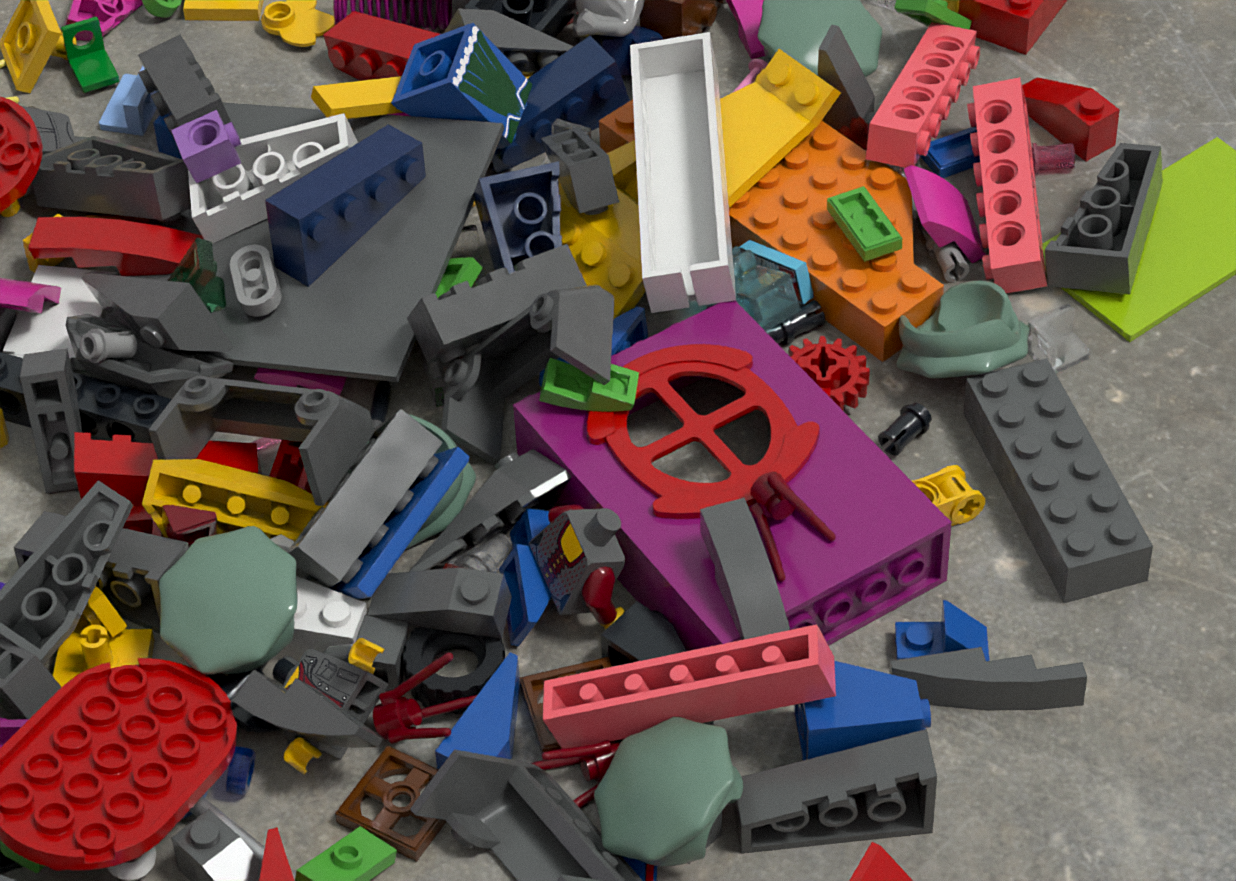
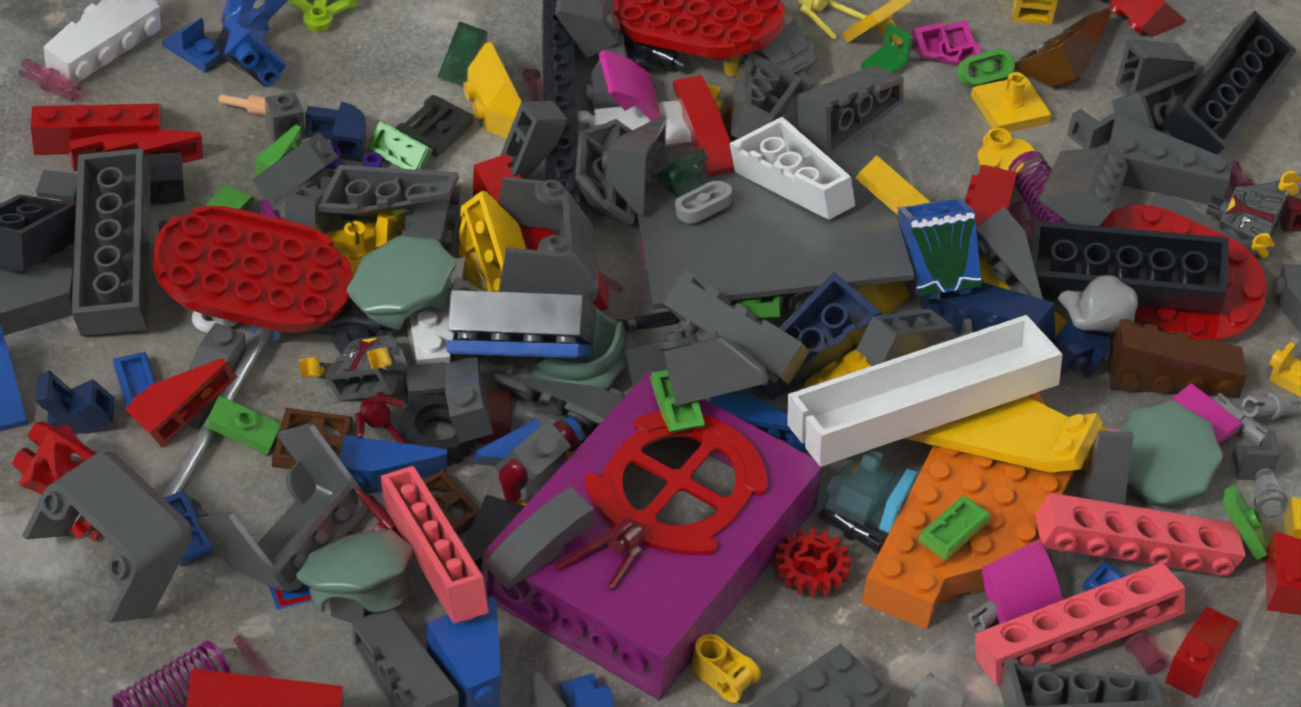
camera: 60 degrees right, 0 degrees up
(98, 345) = (589, 141): light grey pin -> none
(188, 523) = (456, 238): dark red slope -> none
(207, 145) = (780, 118): medium lavender brick -> none
(240, 771) = (298, 347): clear blue tile -> none
(303, 712) = (336, 351): dark grey slope -> none
(341, 201) = (786, 212): dark blue wedge -> none
(913, 420) = (792, 630): black pin -> none
(966, 335) = (887, 638): sand green piece -> none

